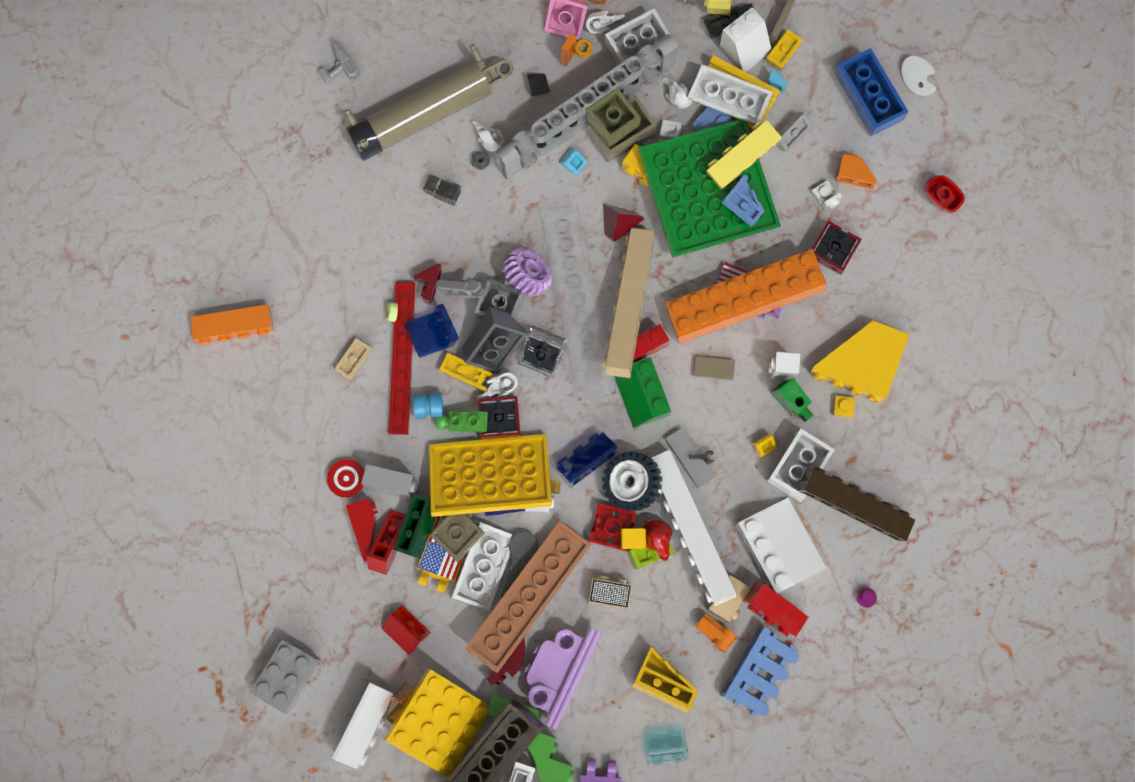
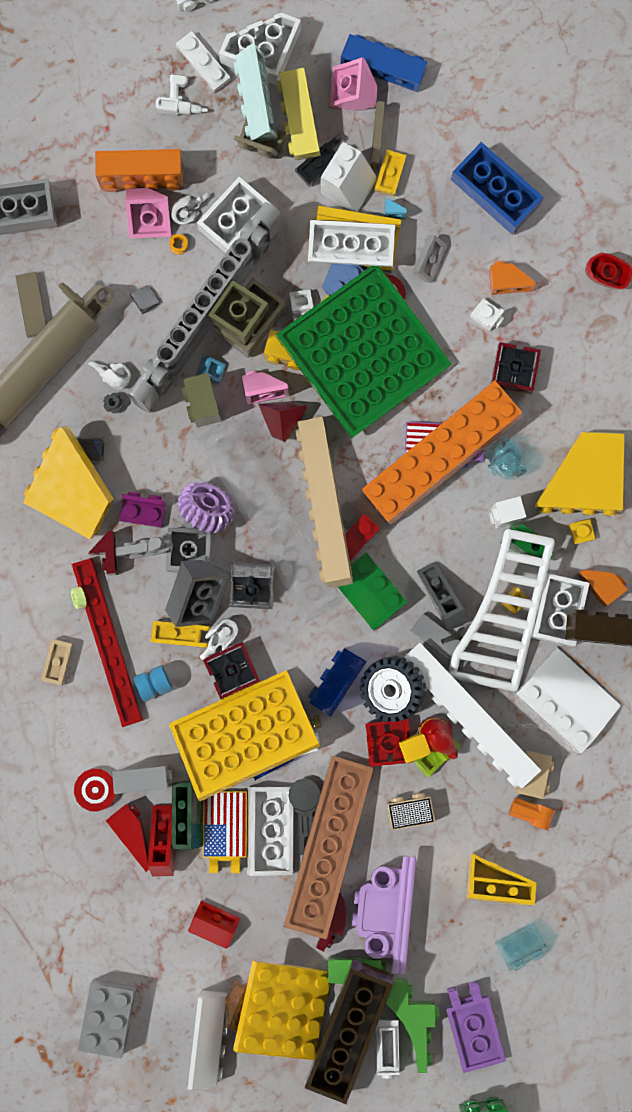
camera: 20 degrees left, 5 degrees up
(418, 215) = (69, 486): none -> yellow slope
(432, 332) = (128, 605): clear blue bracket -> none
(441, 55) = (31, 303): none -> dark tan tile
(457, 535) = (232, 809): dark tan tile -> none
(463, 422) = (195, 688): bright green plate -> none
(472, 257) = (142, 510): none -> magenta bracket
(556, 182) = (202, 400): none -> olive brick
(568, 49) = (163, 252): orange tile -> none
(612, 190) = (263, 387): none -> bright pink slope
(647, 321) = (350, 515): none -> light grey plate
(678, 94) = (295, 259): white piece -> none
(703, 419) = (442, 596): none -> dark grey slope
(714, 368) = (434, 538): dark tan tile -> none
(720, 550) = (542, 726): none -> clear hinge
(732, 445) = (490, 596): none -> white bar
(742, 672) = (572, 844): medium blue fence -> none
(744, 154) = (389, 303): light yellow wedge -> none
(744, 202) = (405, 353): medium blue wing -> none
(775, 609) = (584, 769): red brick -> none
(798, 322) = (506, 460): none -> clear light blue cylinder
(847, 458) = (604, 585): none -> orange slope
(915, 70) = (535, 148): white piece -> none

